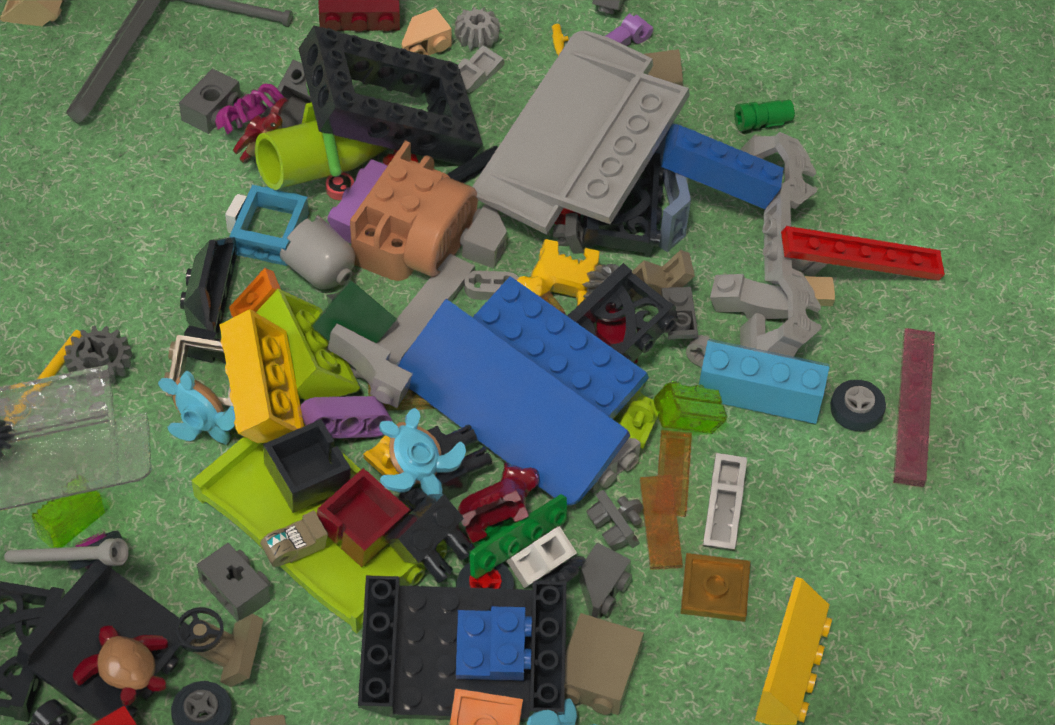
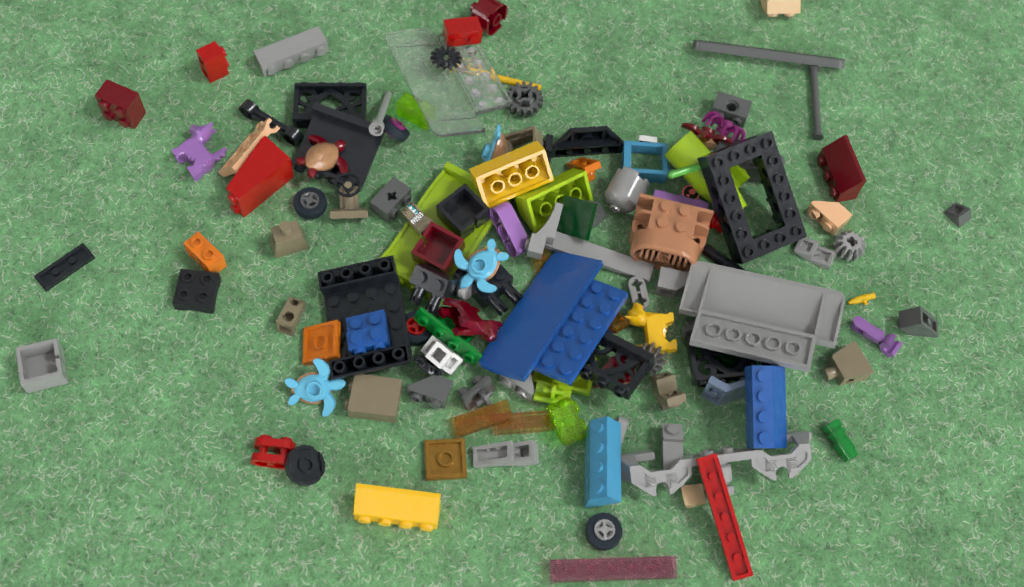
camera: 75 degrees right, 10 degrees up
(686, 323) = (640, 405): dark grey slope -> none

